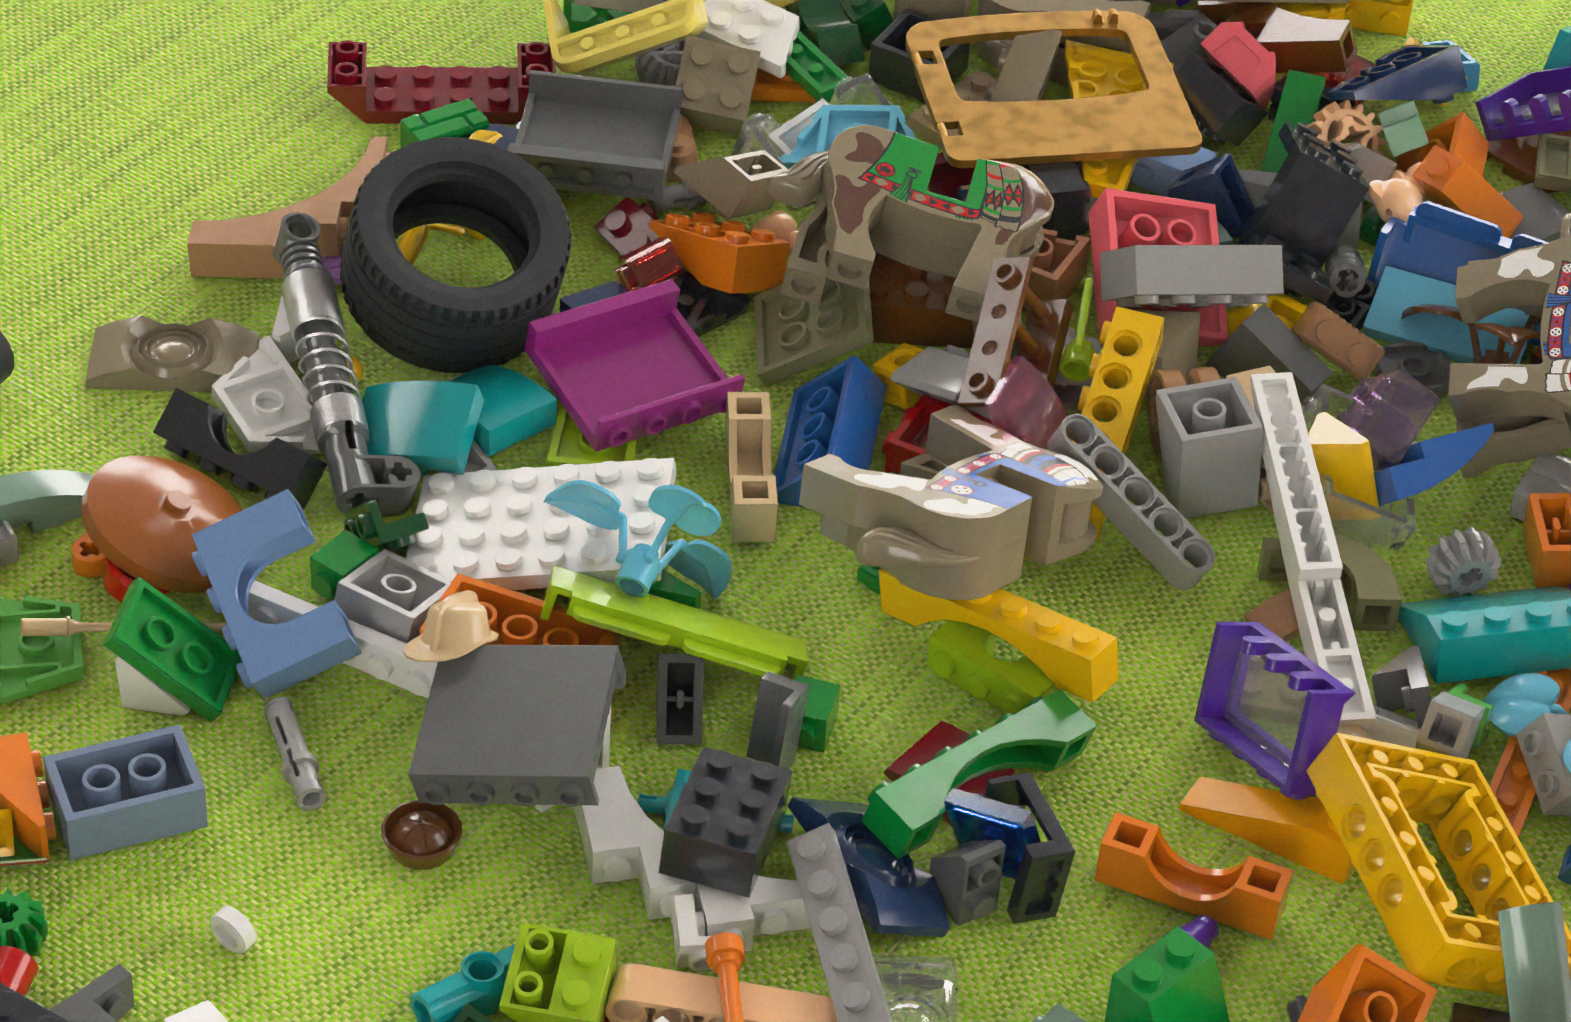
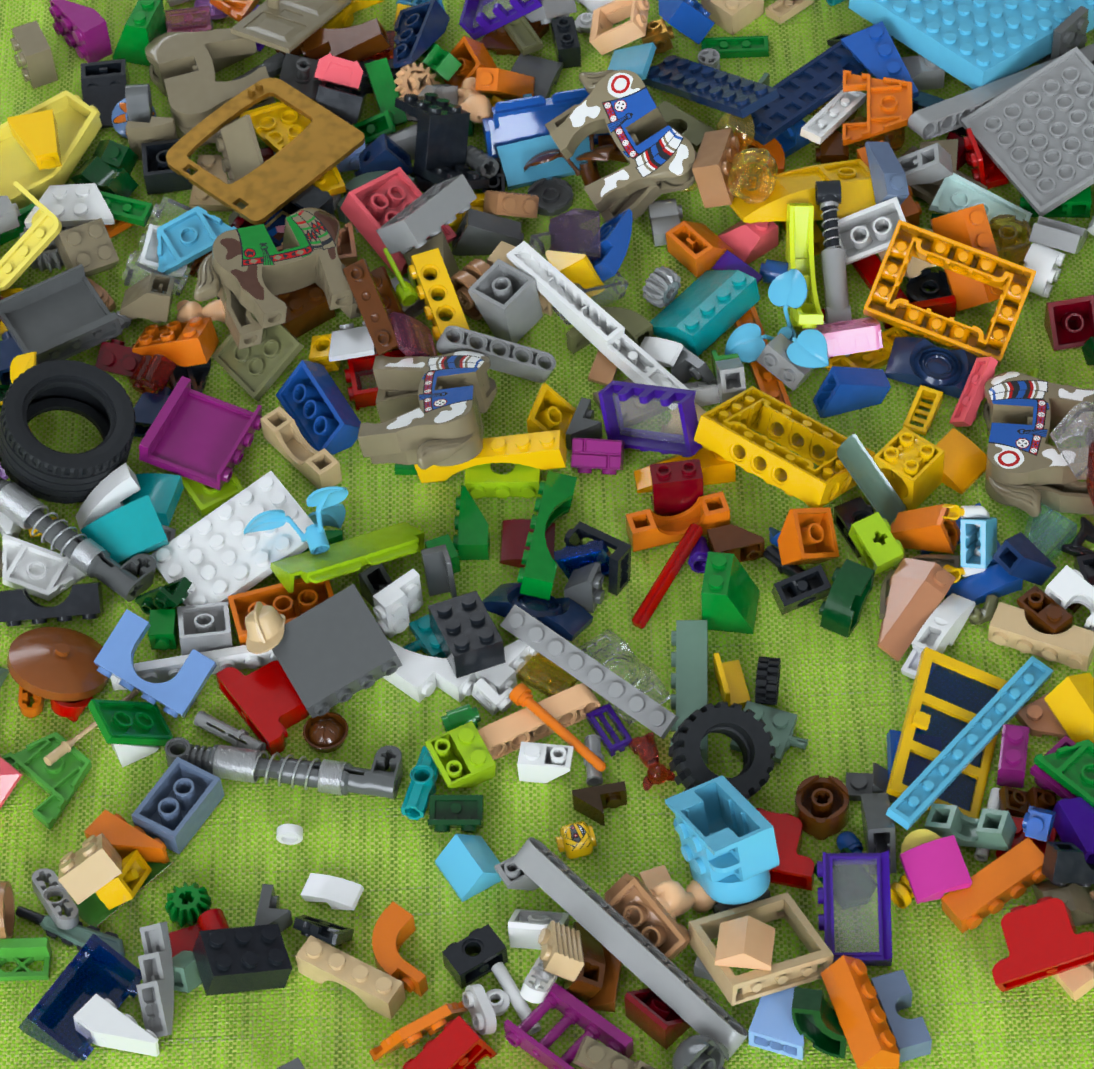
camera: 30 degrees left, 10 degrees up
(359, 888) = (327, 776): none -> dark grey piece
(371, 744) = (264, 702): none -> red brick
(452, 361) = (108, 495): none -> white slope
(632, 936) = (460, 716): none -> green brick
(676, 726) = (397, 602): none -> white plate
(794, 957) = (545, 676): none -> clear yellow plate
(880, 711) = (472, 528): none -> green slope
(1108, 939) = (667, 576): none -> red axle
(1146, 630) = (550, 412): none -> yellow slope
(1159, 717) = (597, 454): none -> magenta brick
(1174, 672) = (582, 424): none -> dark grey slope
(1223, 817) = (675, 486): none -> dark red panel
(1248, 154) = (377, 125): none -> green slope
(1254, 962) = (736, 541): none -> reddish brown slope
(1383, 640) = (662, 350): none -> white slope

